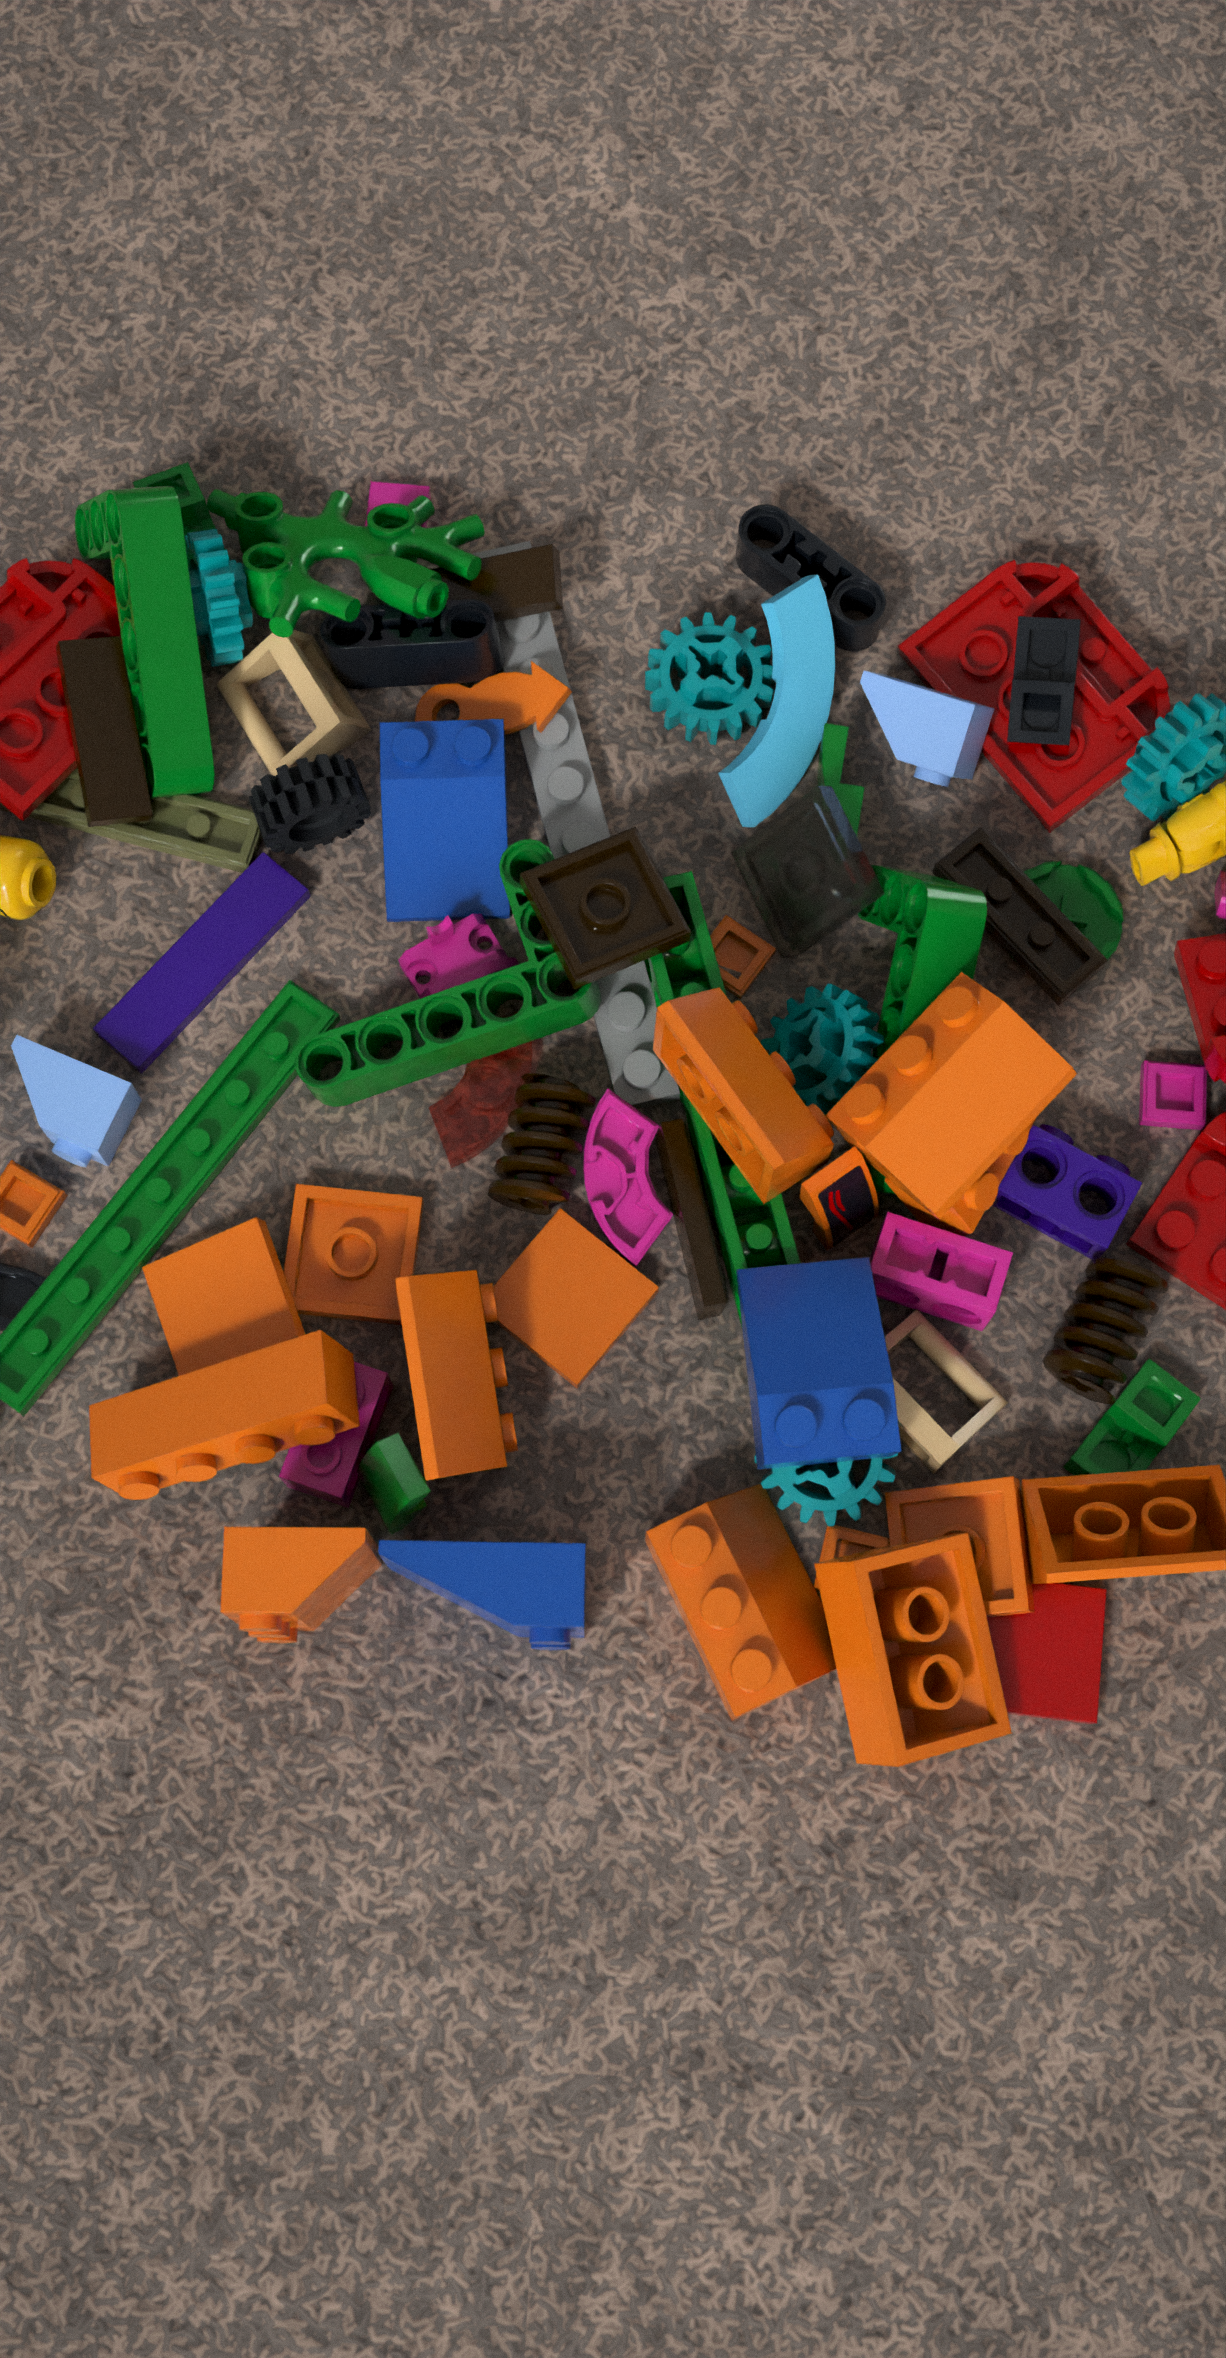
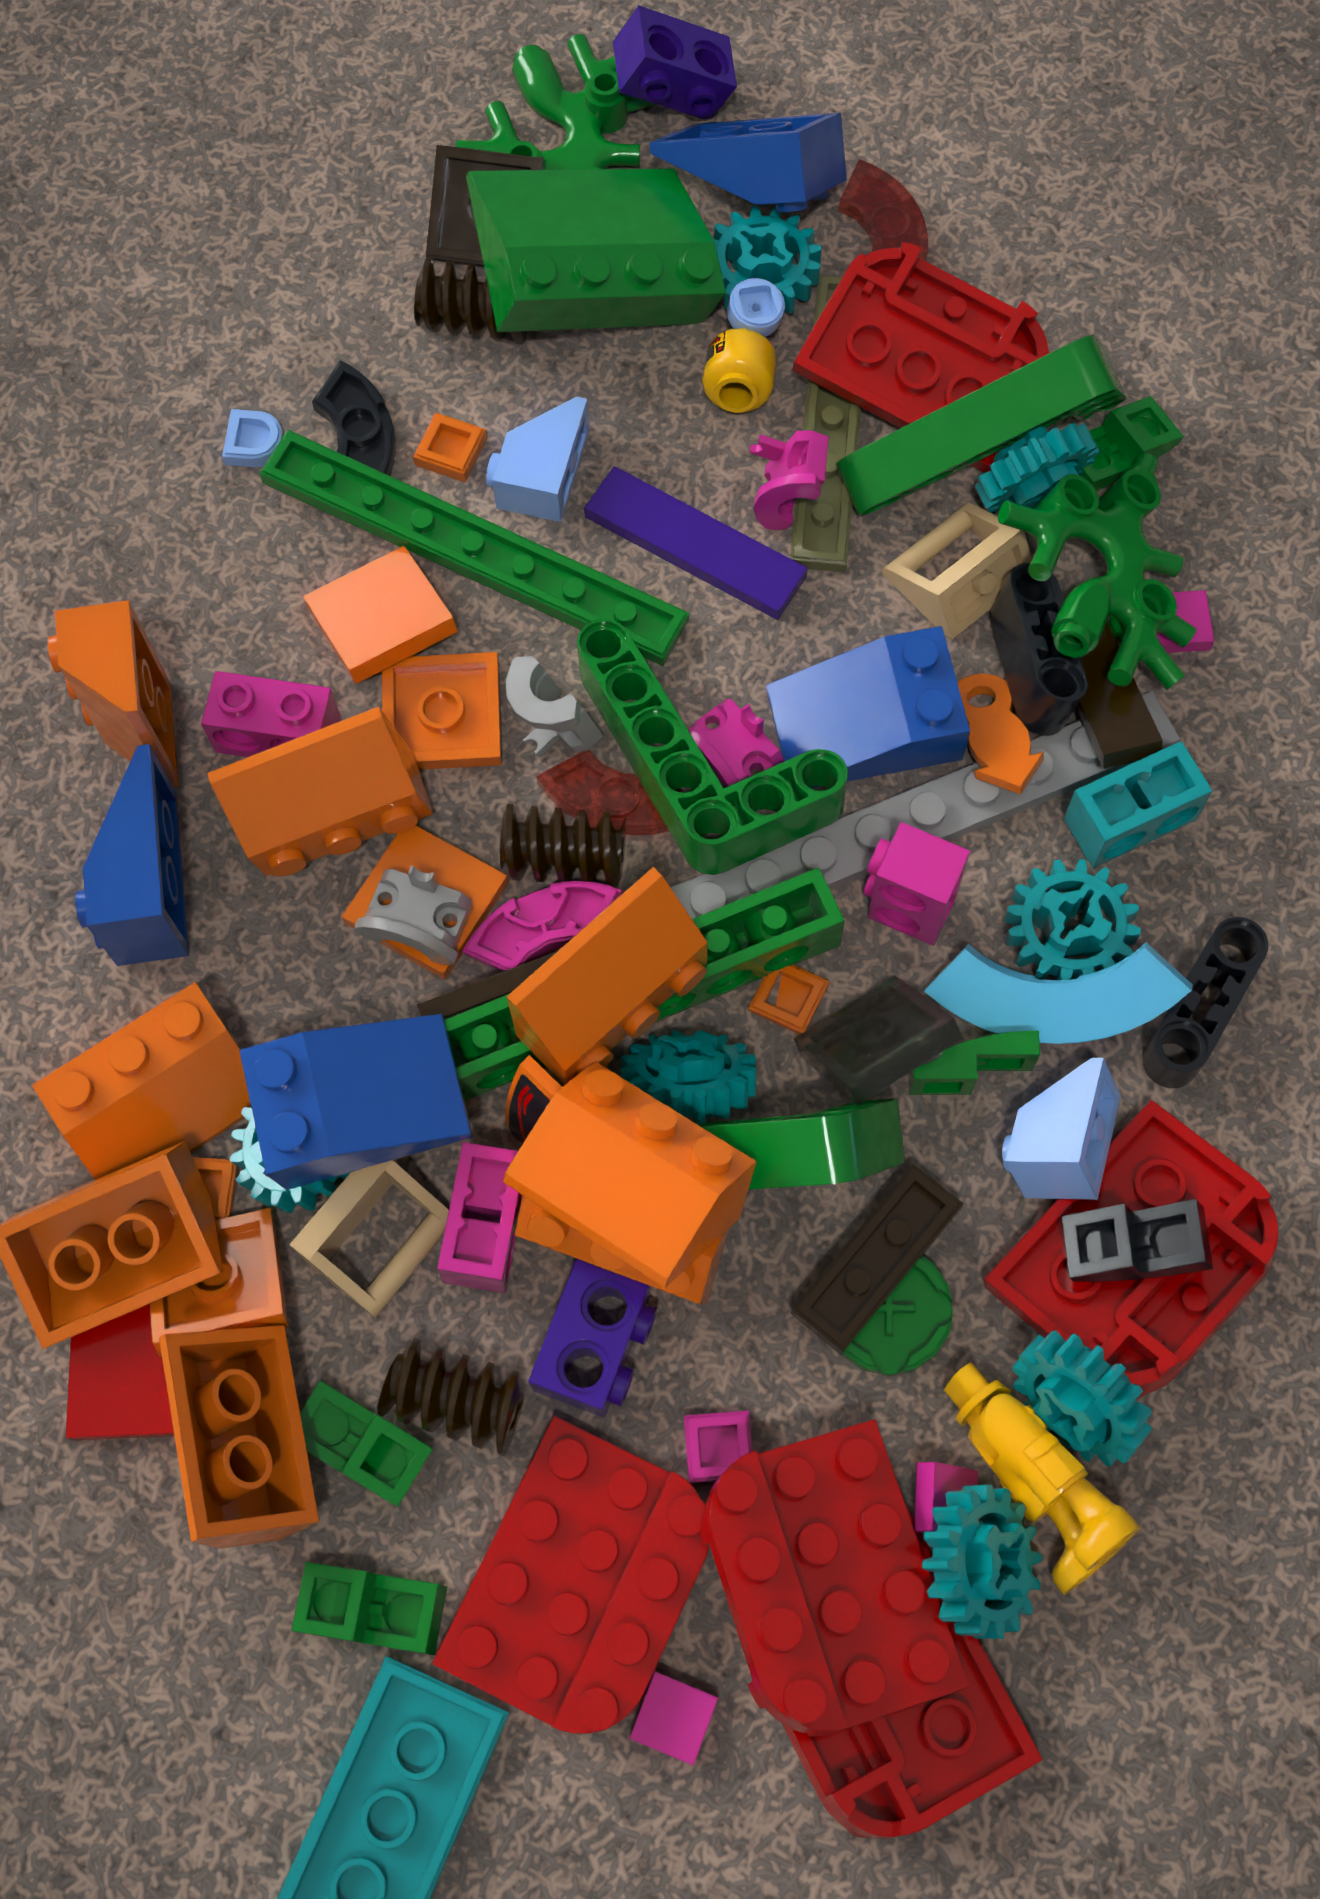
camera: 85 degrees right, 5 degrees down
(104, 731) = (887, 404): dark brown tile -> none
(161, 840) = (793, 472): none -> dark pink piece
(224, 1416) = (260, 618): orange brick -> none
(309, 803) = (853, 588): black tyre -> none
(393, 1482) = (217, 753): green slope -> none
(396, 1145) = (536, 703): none -> light grey piece
(596, 1303) = (417, 914): none -> light grey piece
(603, 589) = (1137, 804): none -> teal brick
(605, 907) = (785, 842): dark brown tile -> none
(659, 797) = (914, 882): none -> dark pink brick

